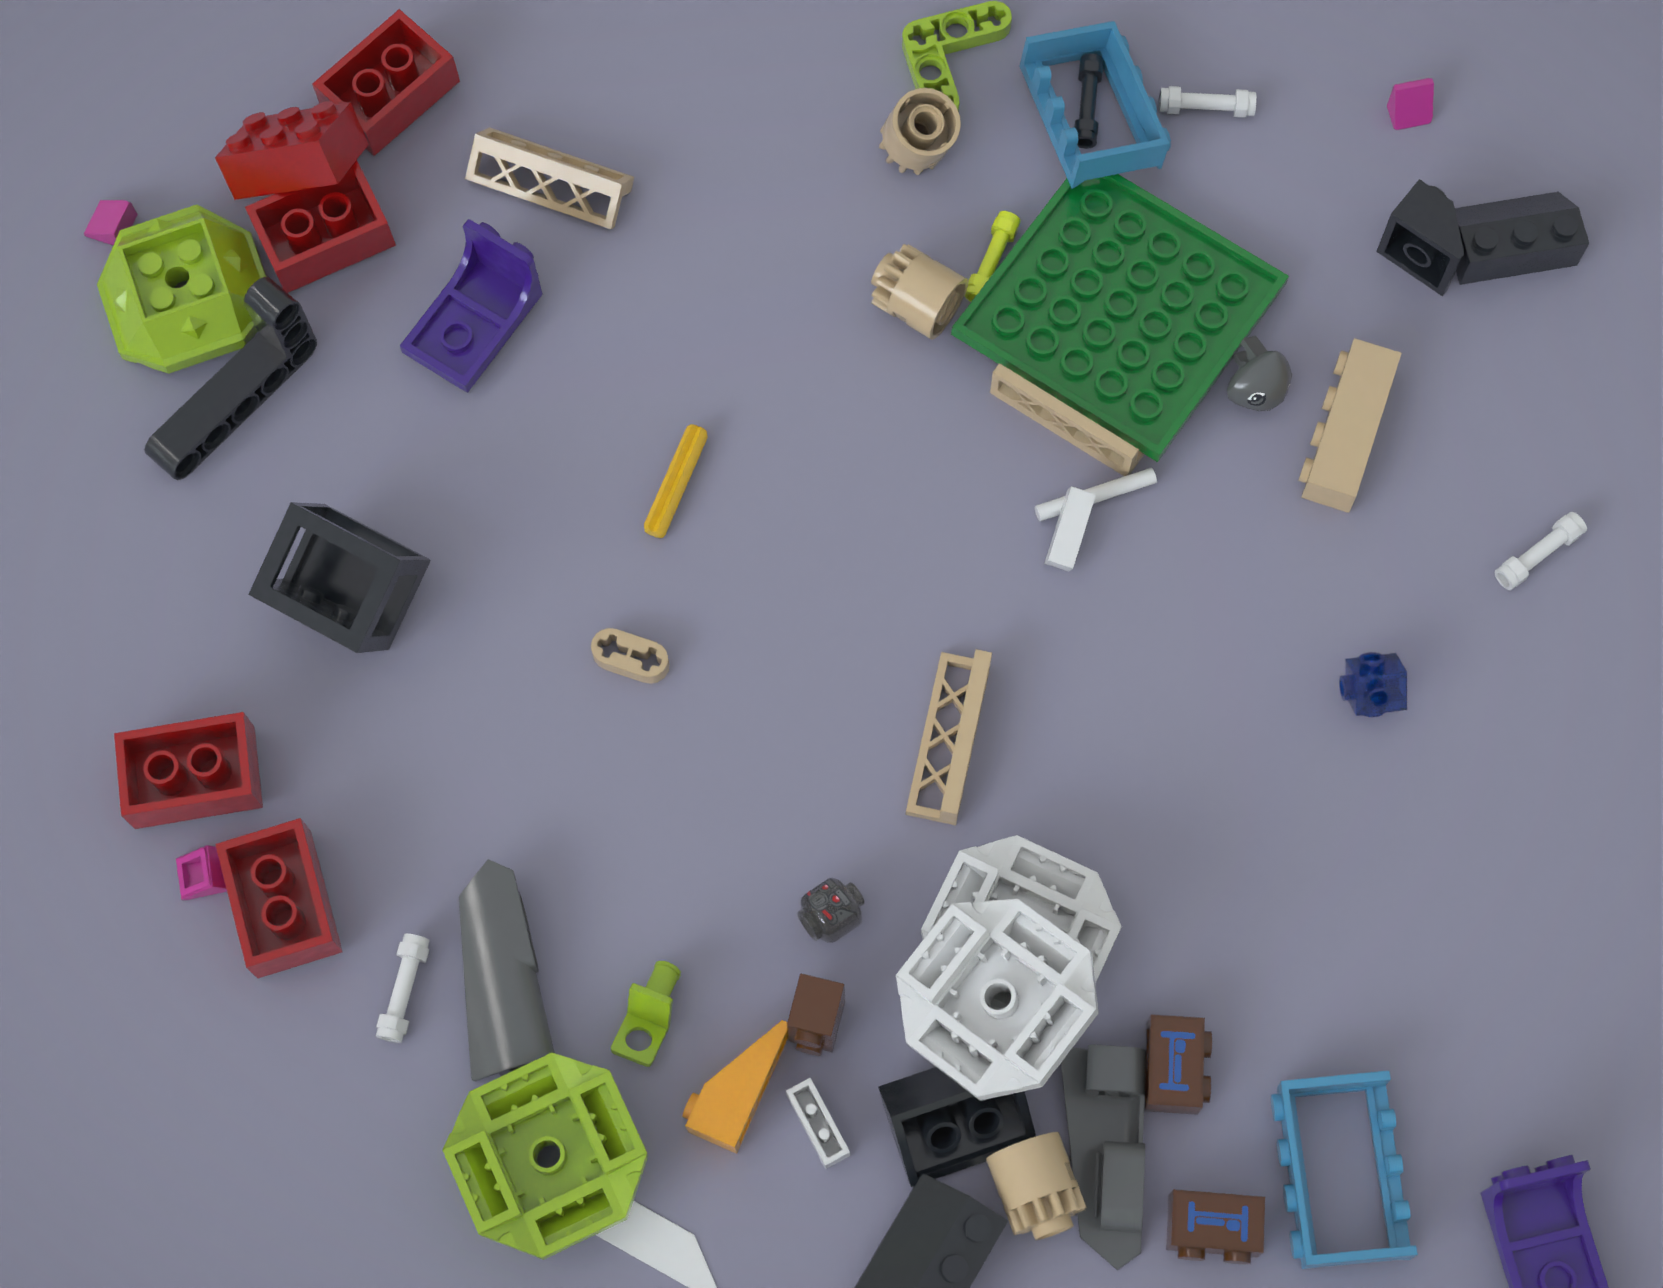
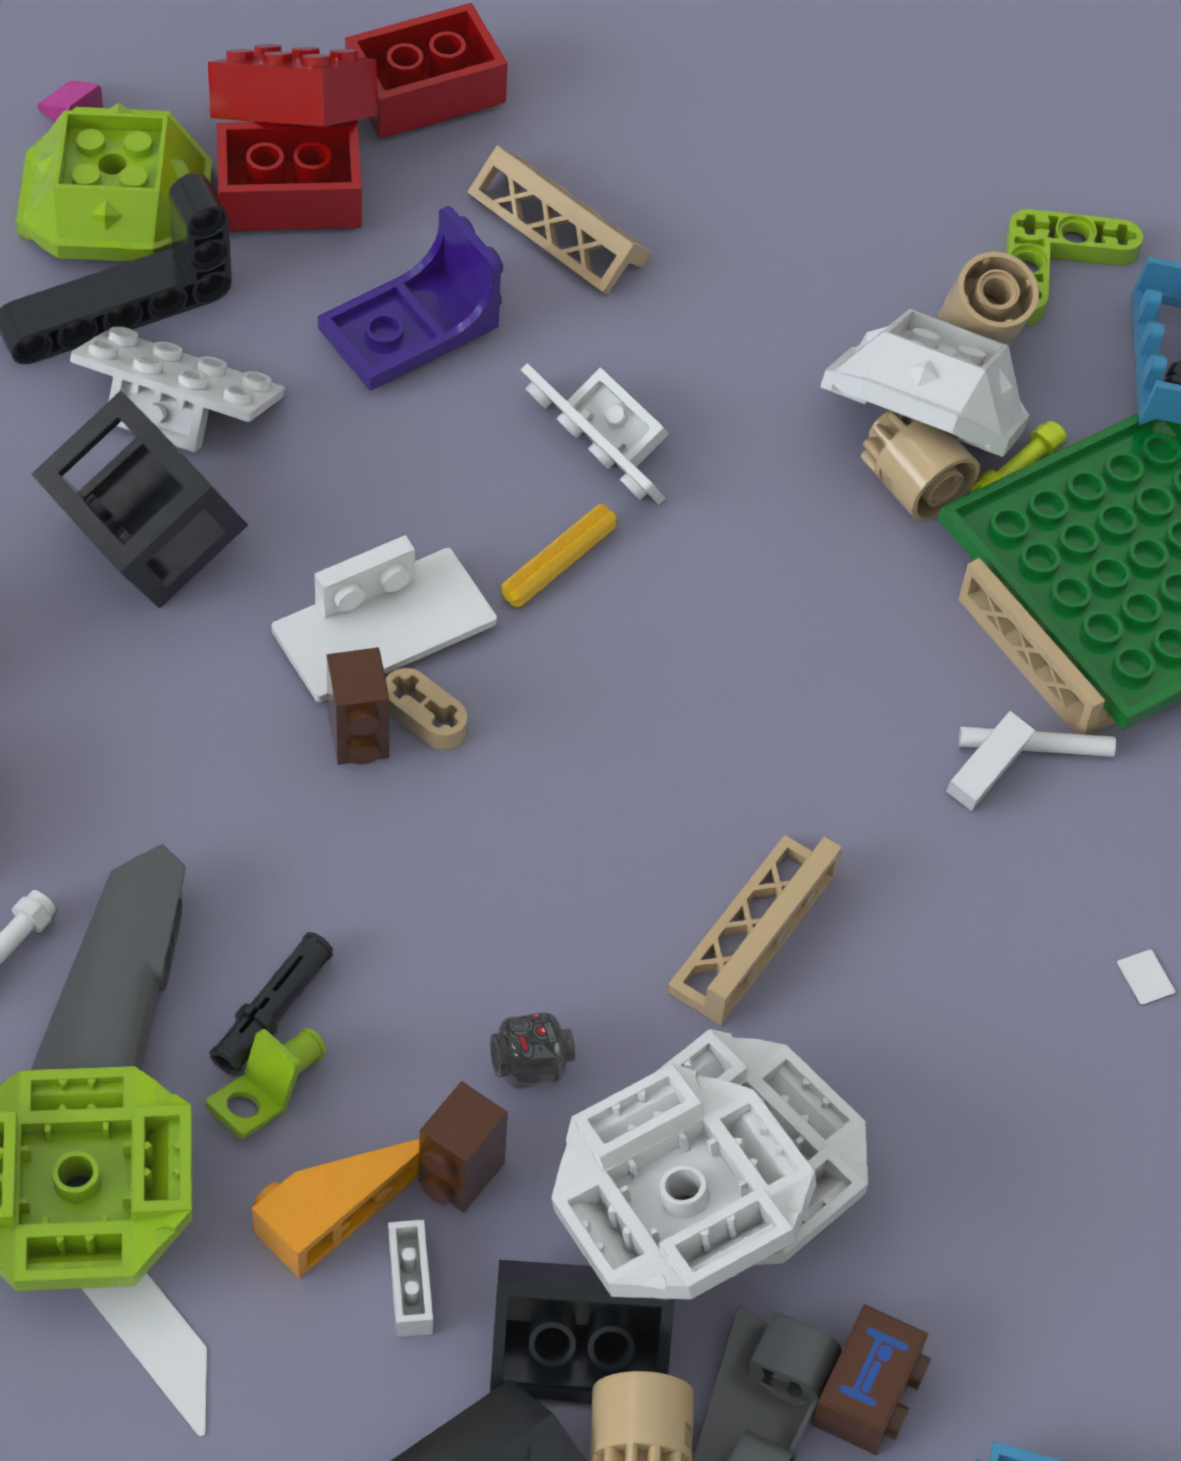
camera: 15 degrees right, 15 degrees down
(313, 455) = (175, 386): none -> white bracket
(565, 593) = (387, 604): none -> white bracket
(584, 683) = (358, 706): none -> reddish brown brick
(620, 965) = (271, 1002): none -> black pin
(666, 348) = (612, 420): none -> white bracket
(904, 221) = (936, 378): none -> white piece
(1246, 657) = (1146, 977): none -> white sticker

